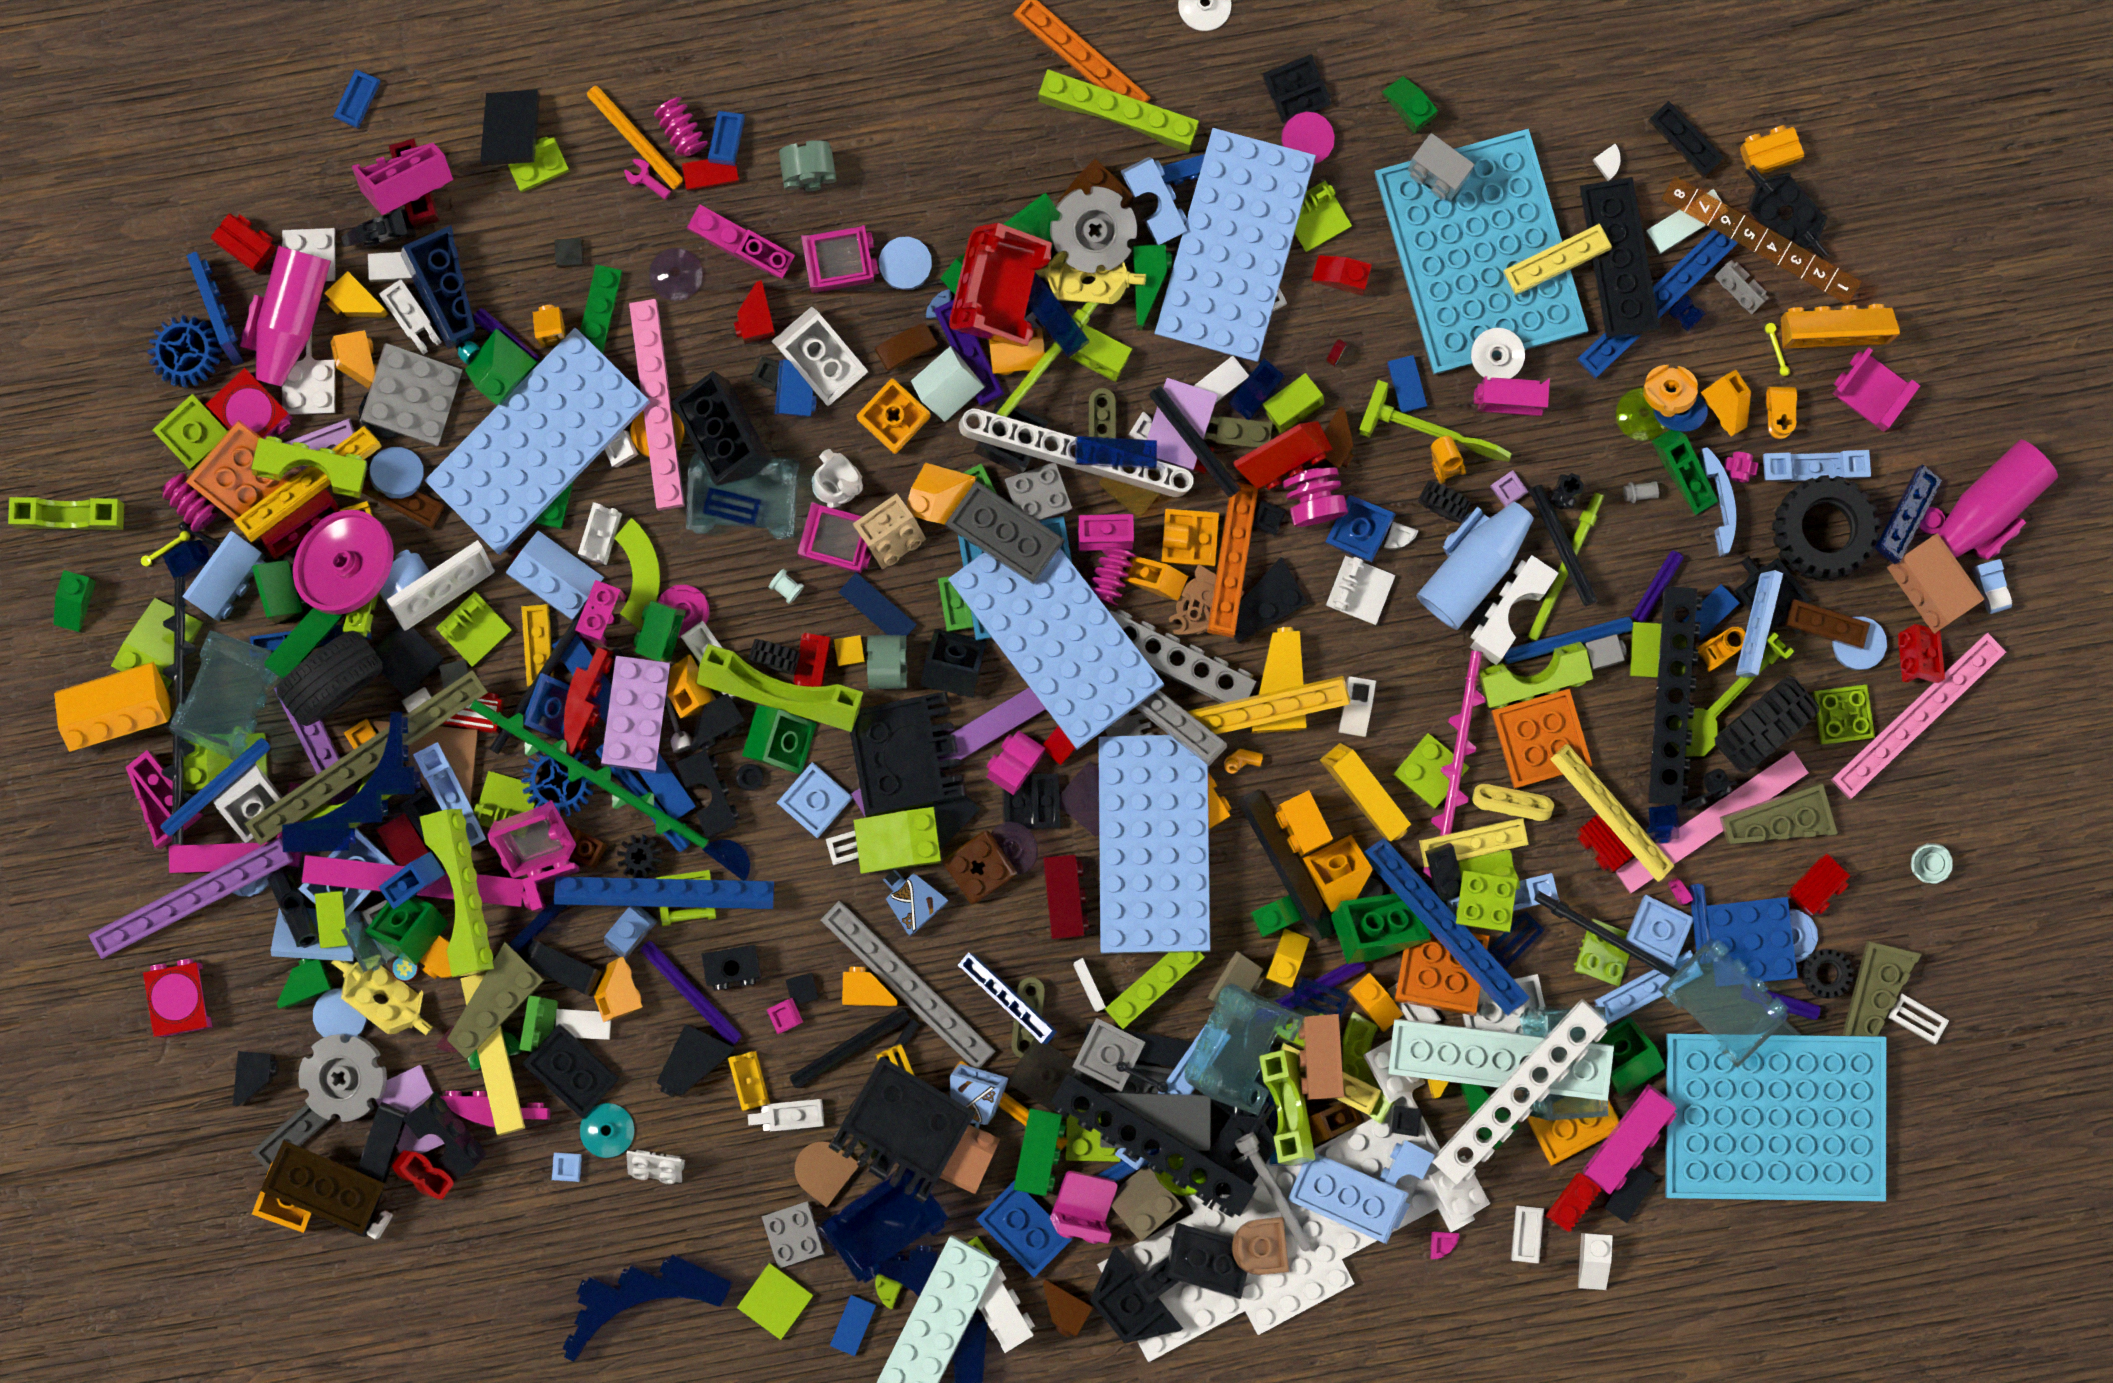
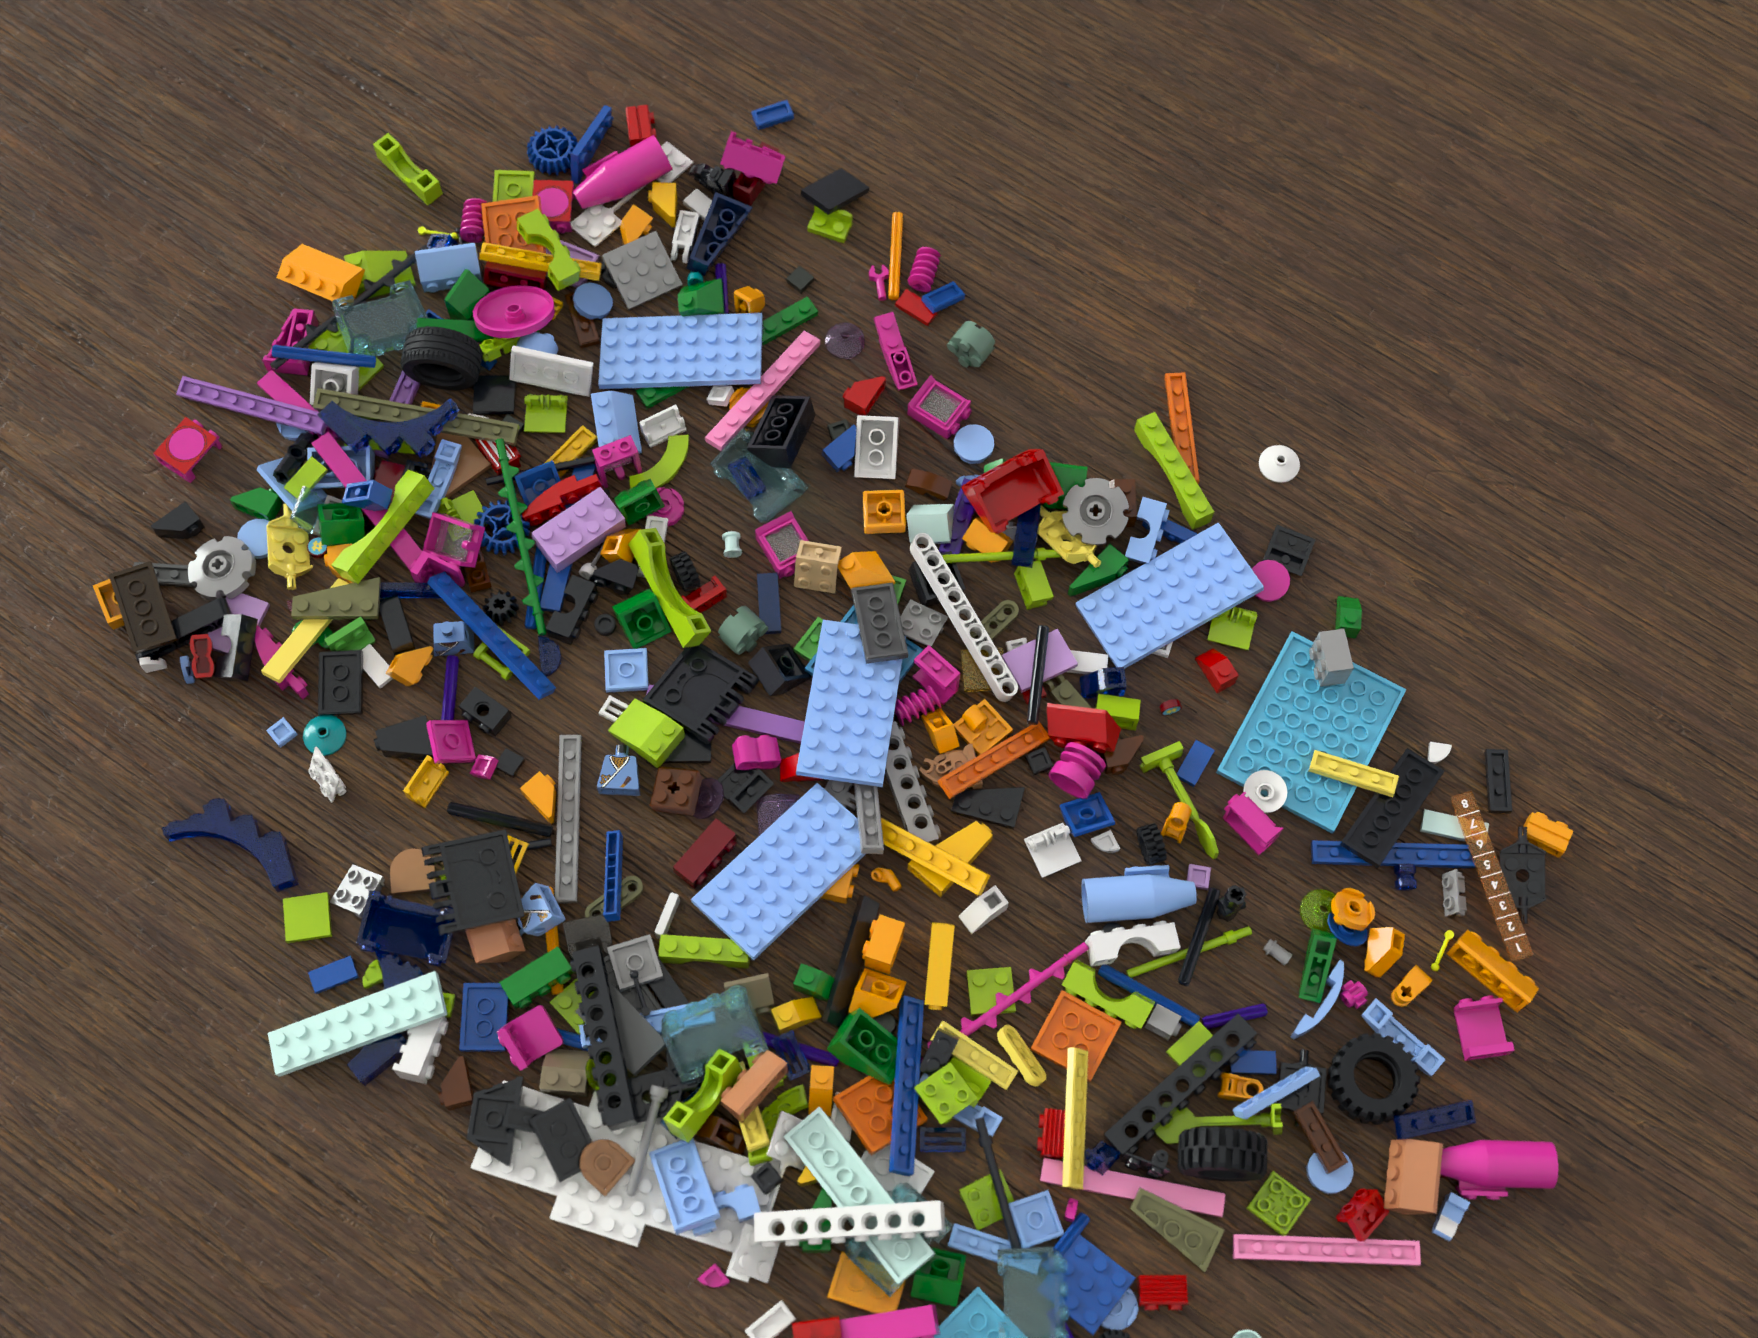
camera: 45 degrees right, 15 degrees down
(72, 600) = (364, 212): green slope -> none
(418, 1198) = (186, 666): none -> medium blue tile
(733, 1024) = (451, 741): none -> dark pink tile
(789, 1115) = (426, 822): white hinge -> none
(836, 480) = (817, 513): white helmet -> none
(849, 651) = (727, 608): yellow tile -> none
(1115, 452) = (985, 634): clear blue tile -> none
(1932, 521) = (1447, 1138): dark pink plate -> none

